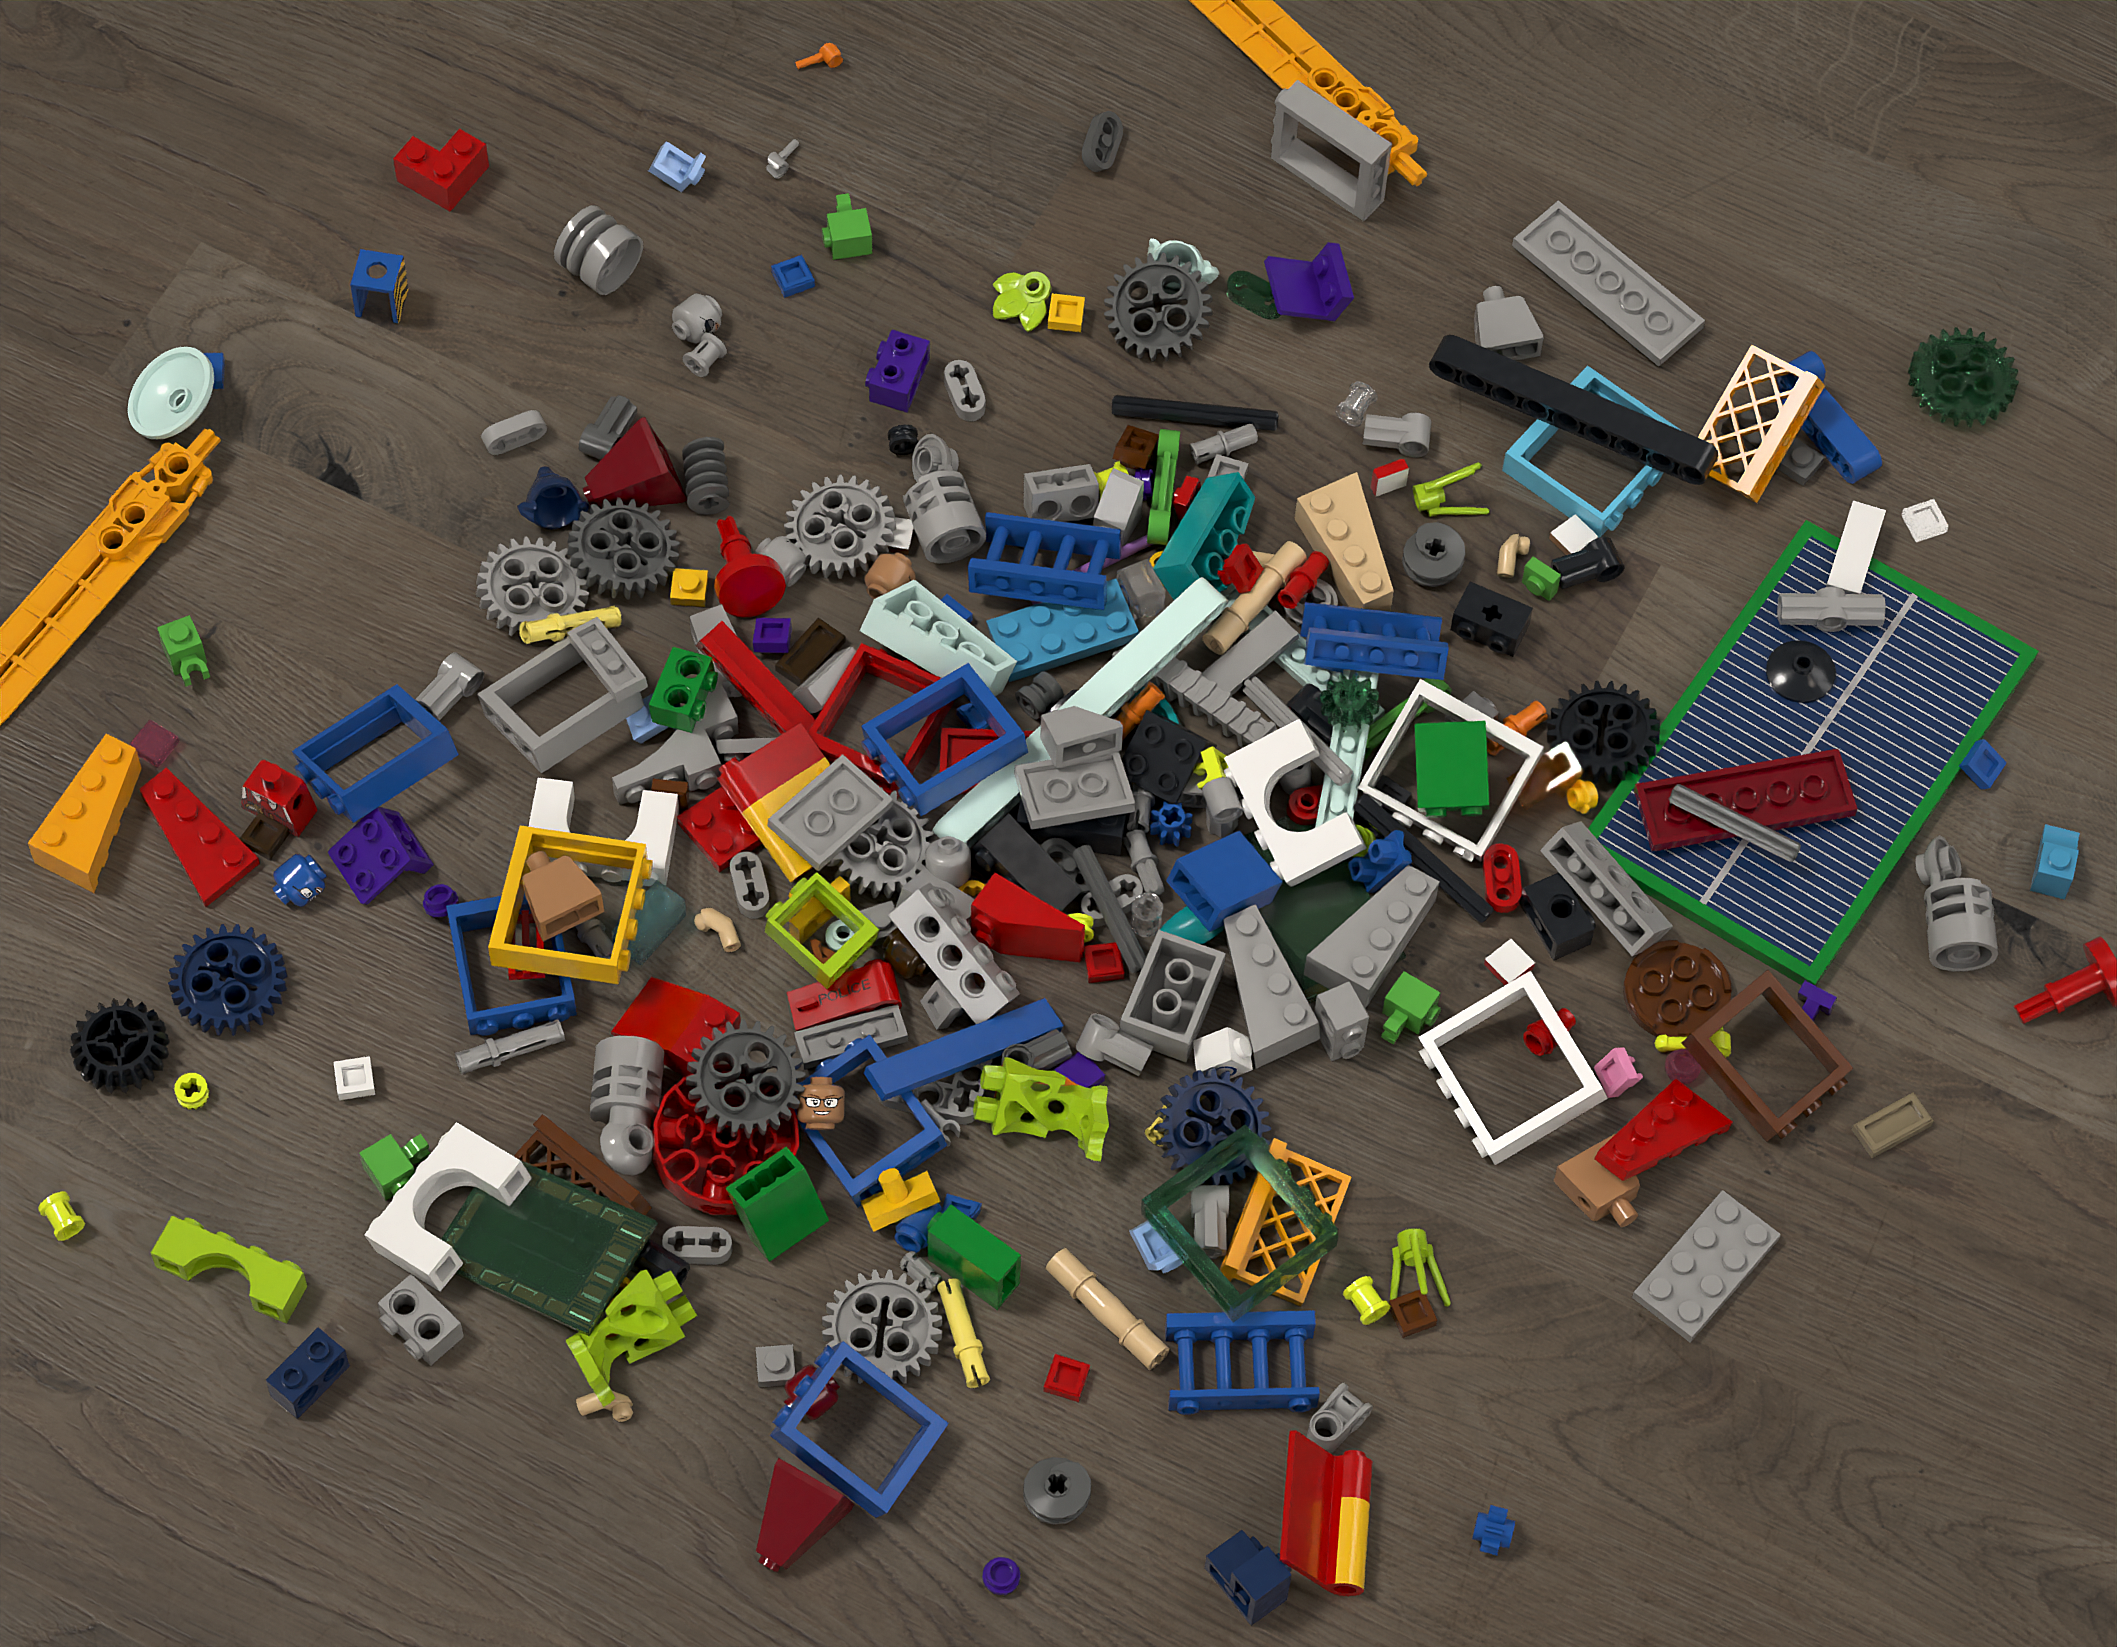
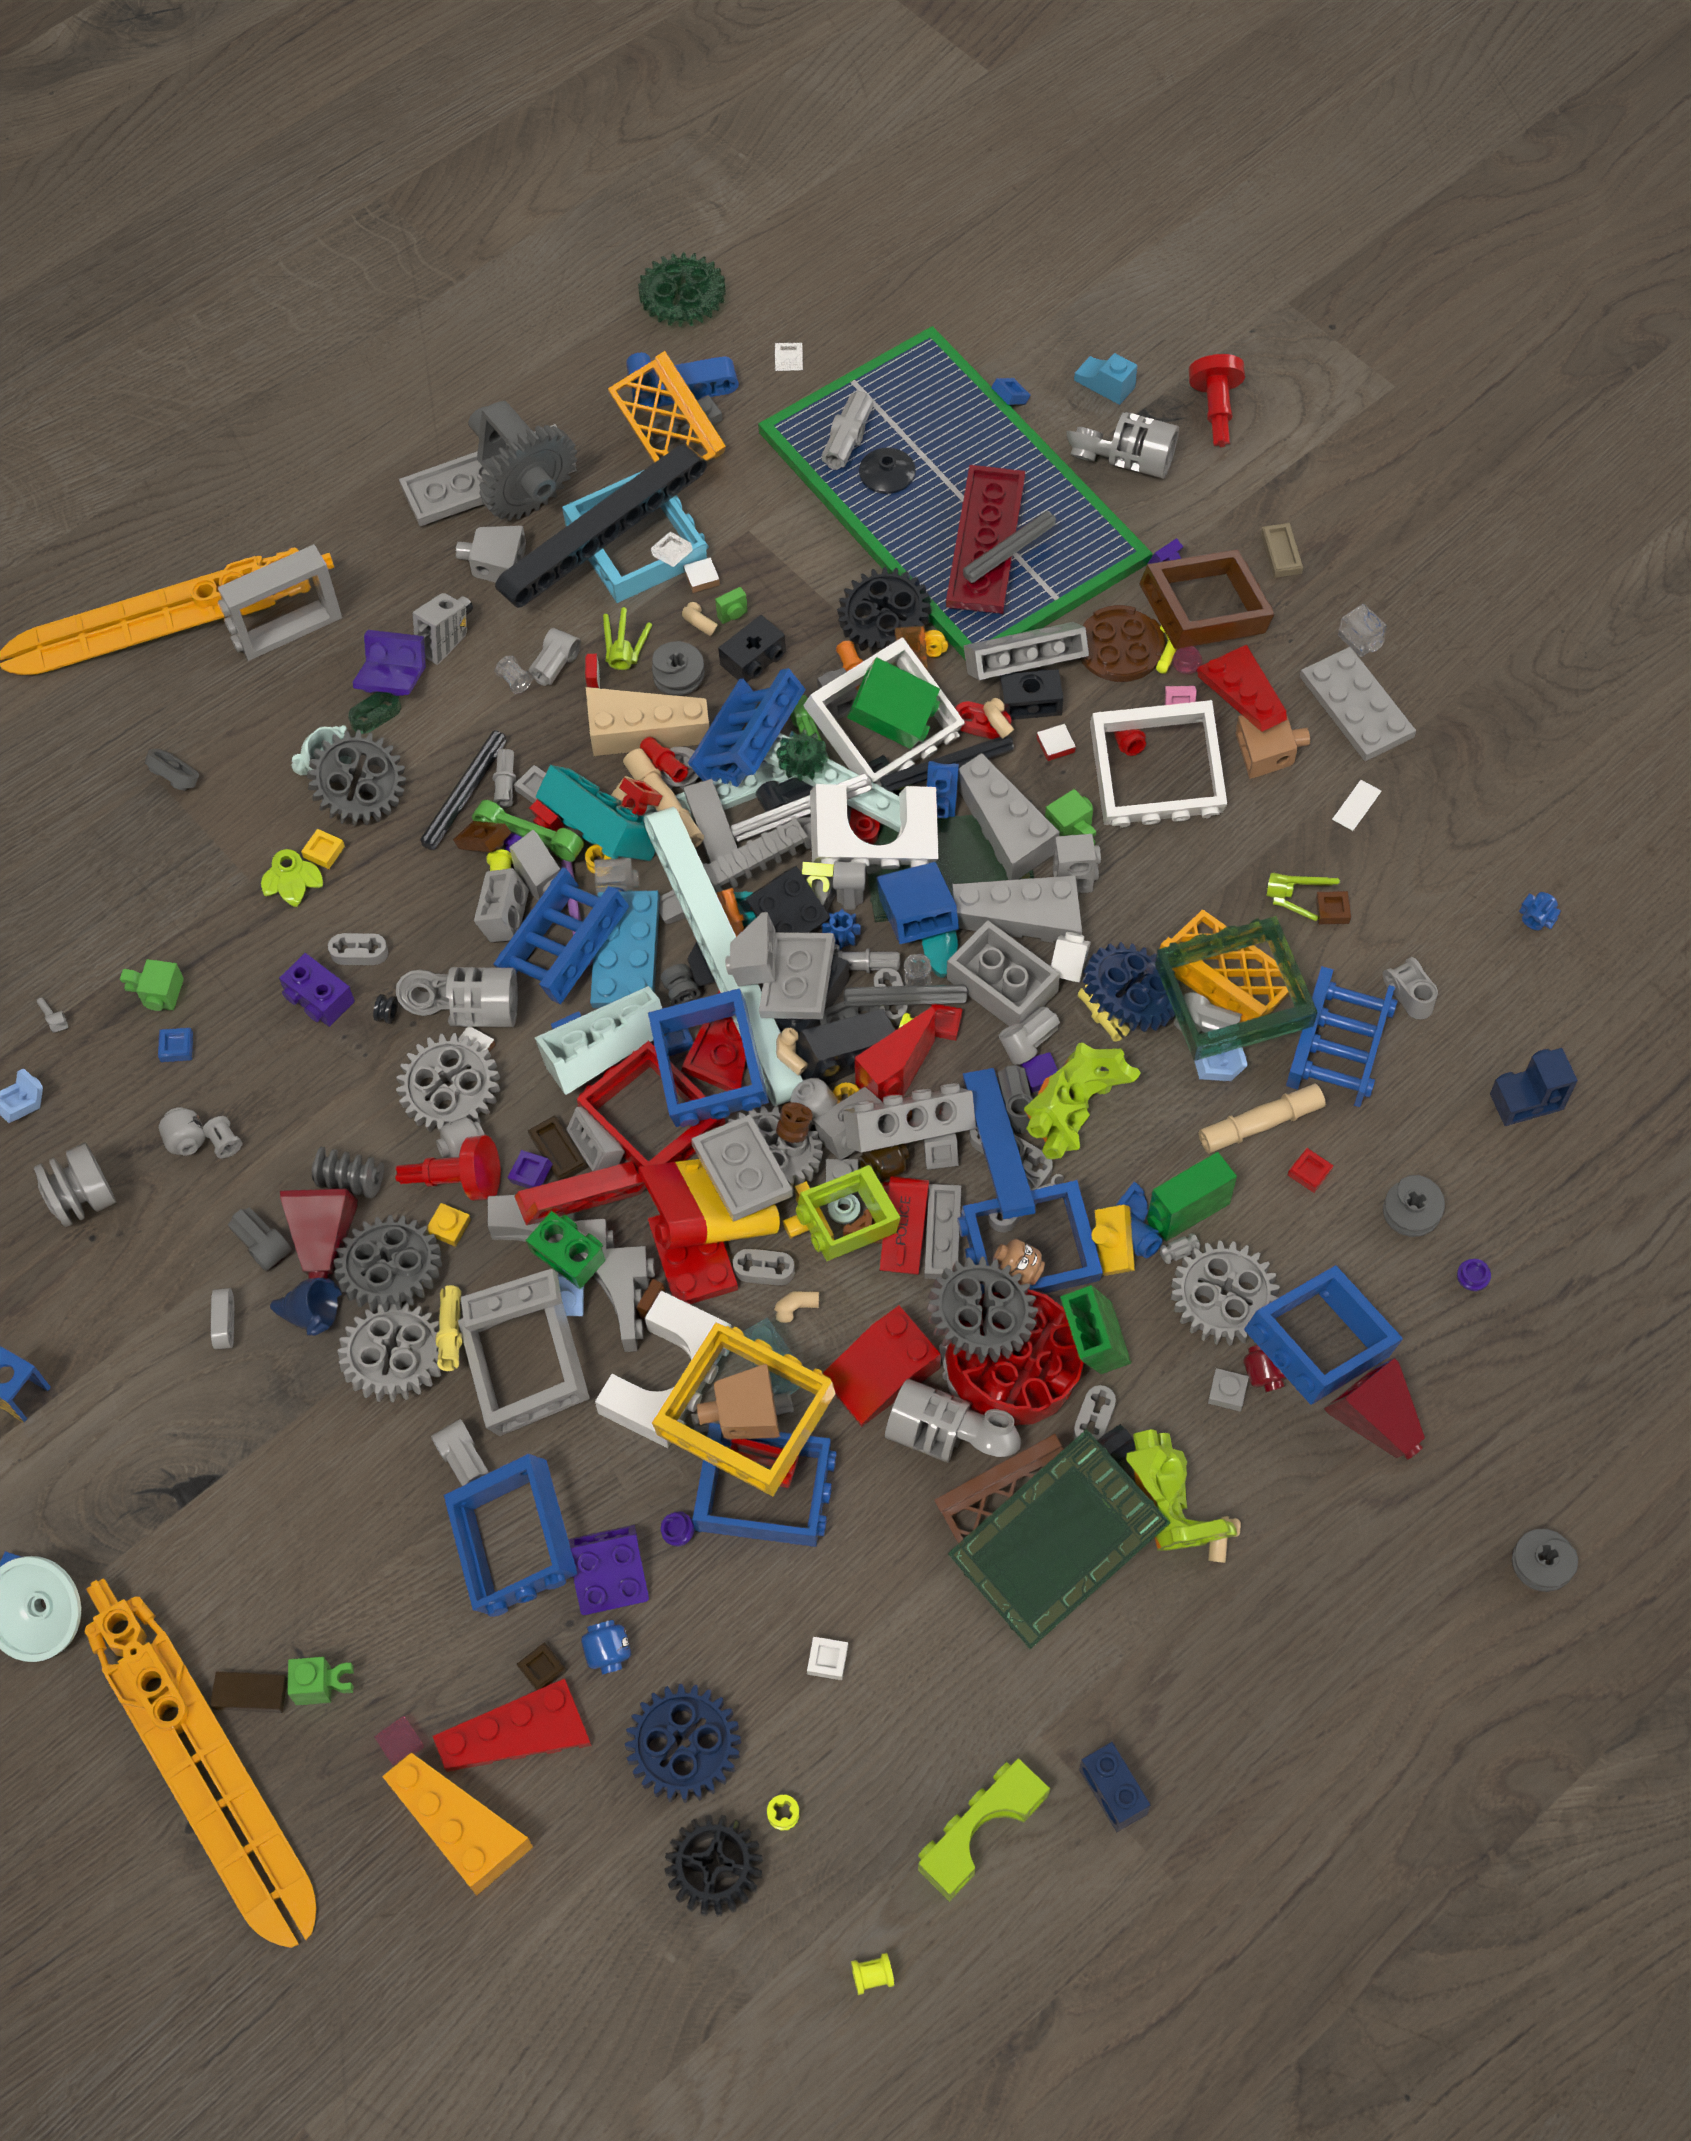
camera: 65 degrees left, 0 degrees up
(157, 599) = (248, 1692): none -> dark brown tile
(275, 794) = (511, 1640): red torso -> none
(391, 1165) = (930, 1651): bright green brick -> none
(427, 1315) = (1087, 1664): light grey brick -> none
(456, 1161) = (951, 1585): white arch -> none
(504, 1048) = (847, 1524): light grey pin -> none
(738, 747) = (636, 1212): light grey plate -> none
(888, 574) = (518, 1060): medium nougat head -> none
(914, 841) = (794, 1122): none -> reddish brown wheel
(967, 1347) = (1248, 1233): light yellow pin -> none
(987, 812) = (787, 1051): none -> tan arm
(1326, 1515) = (1502, 1010): red door -> none
(1366, 1300) = (1315, 932): neon yellow bush -> none
(1383, 311) = (442, 625): none -> light grey torso
(1500, 884) = (993, 712): none -> tan arm
(1566, 1304) = (1356, 805): none -> white sticker
(1576, 489) = (671, 549): none -> clear tile
(1596, 561) = (732, 568): black piece -> none
(1602, 308) = (525, 472): none -> dark grey piece
(1807, 1241) = (1362, 630): none -> clear brick
(1856, 548) = (800, 400): white tile -> none

